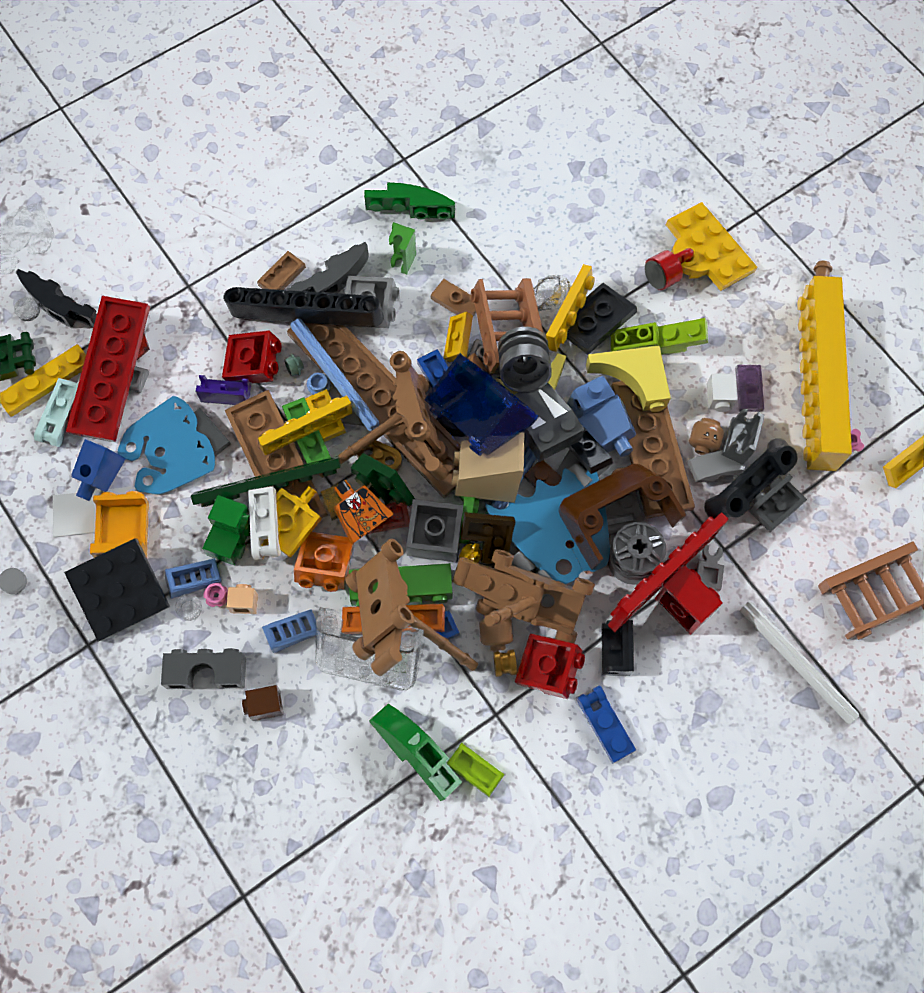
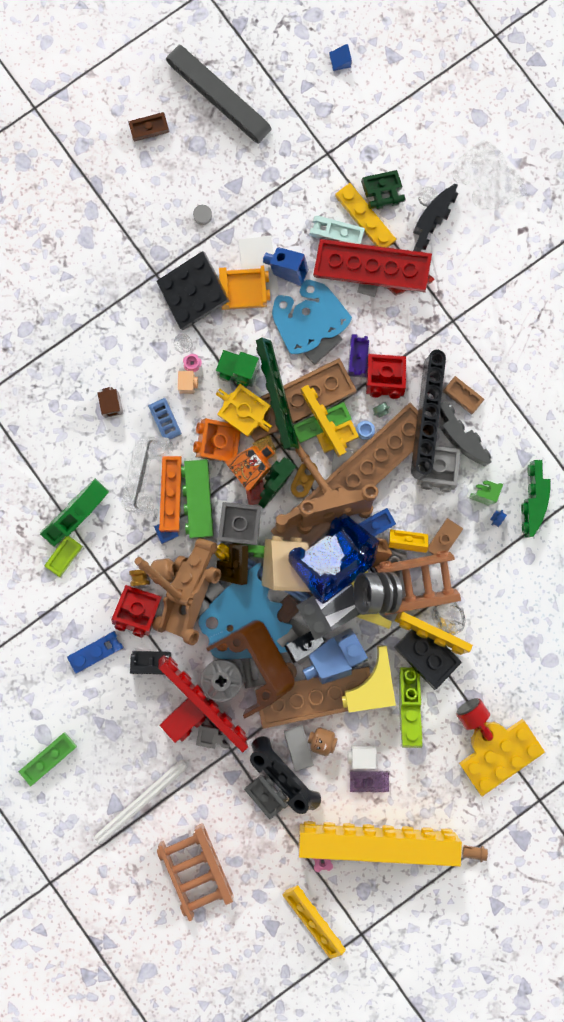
camera: 90 degrees right, 15 degrees up
(181, 667) = (136, 374): dark grey arch -> none
(186, 588) = (199, 347): medium blue slope -> none
(263, 522) = (239, 393): white plate -> none
(334, 374) = (370, 441): light blue axle -> none
(386, 613) = (162, 485): medium nougat piece -> none
(431, 241) = (498, 518): none -> blue plate
(742, 436) = (321, 771): dark grey hinge -> none
(753, 788) = (47, 759): none -> bright green plate

